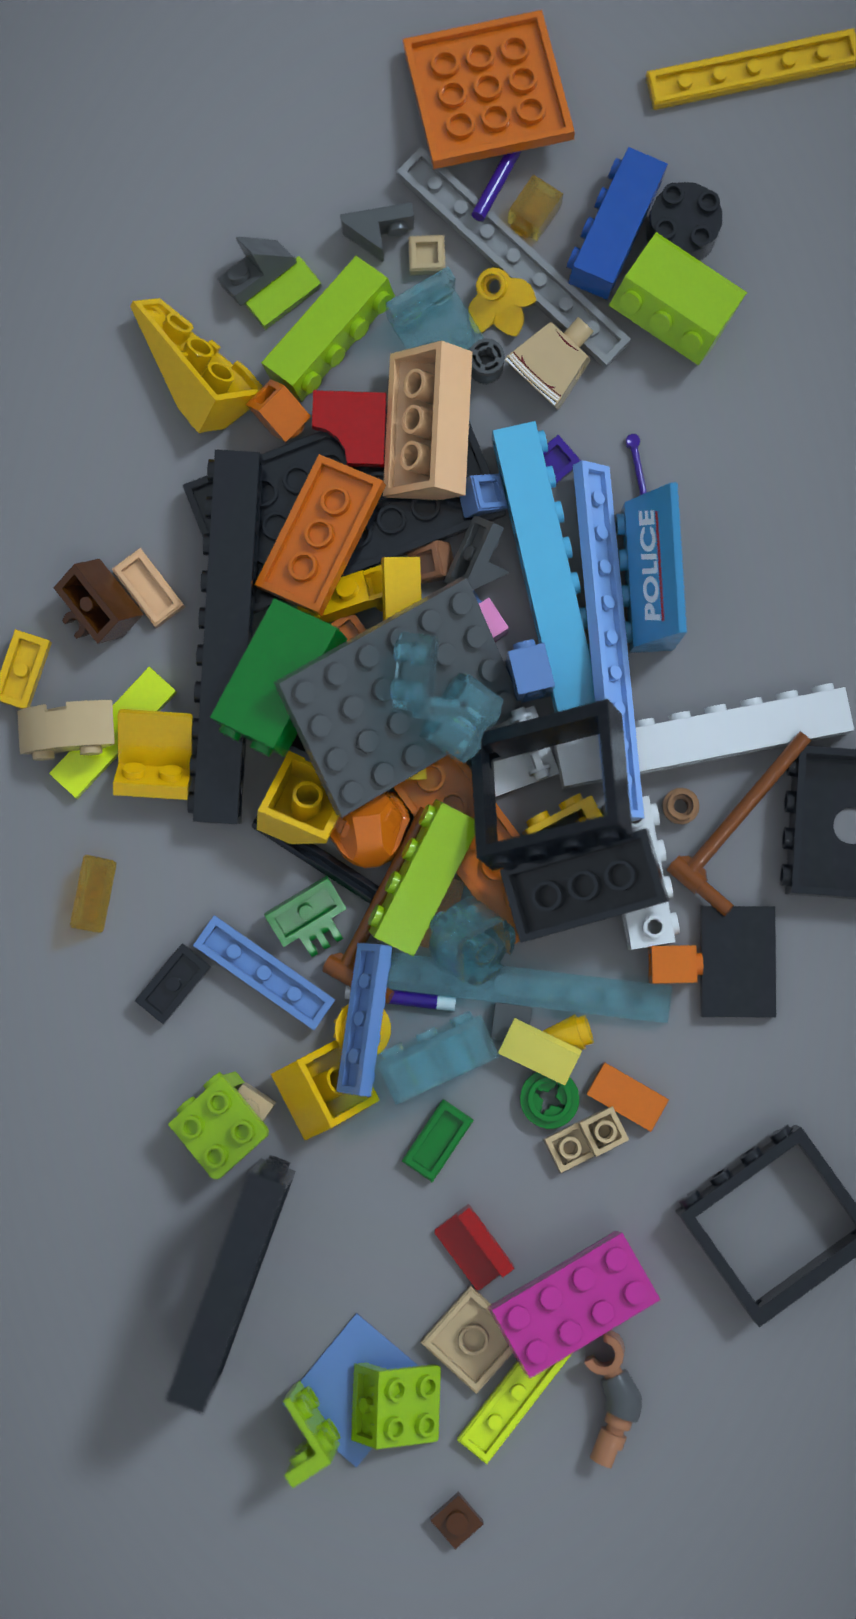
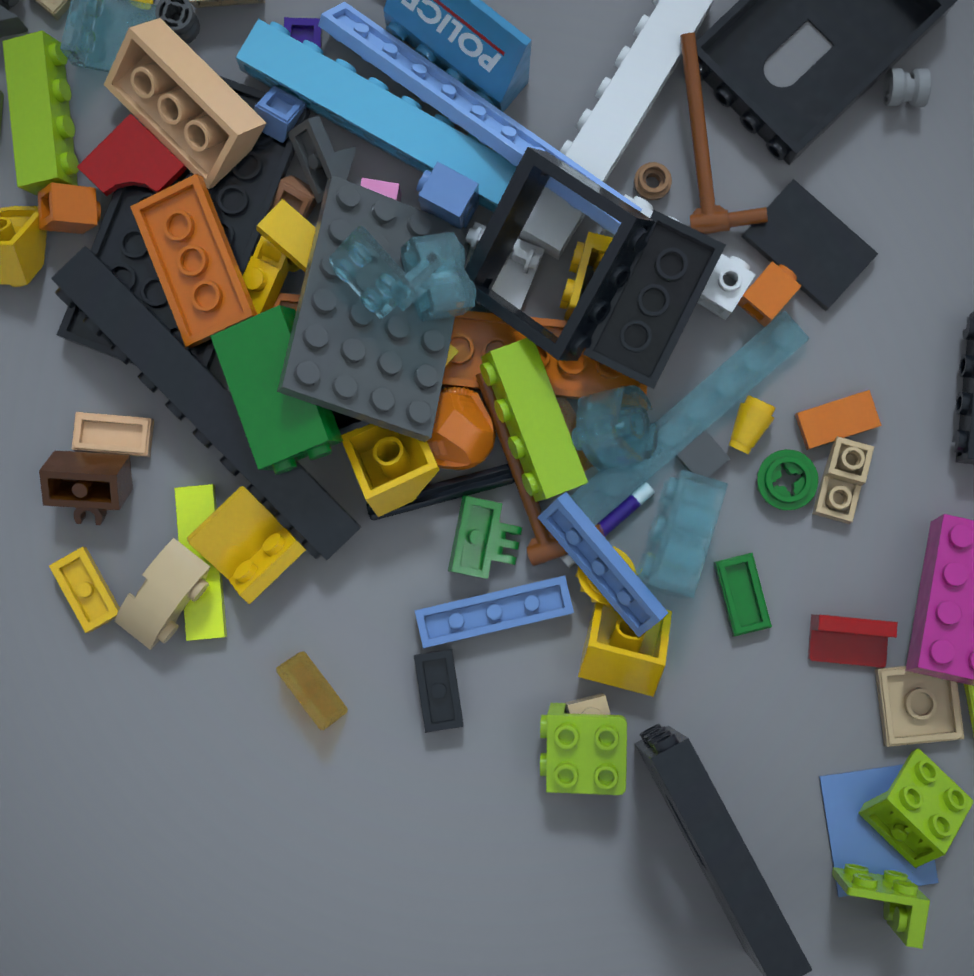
camera: 45 degrees left, 0 degrees up
(540, 1051) = (747, 453): light yellow tile -> none

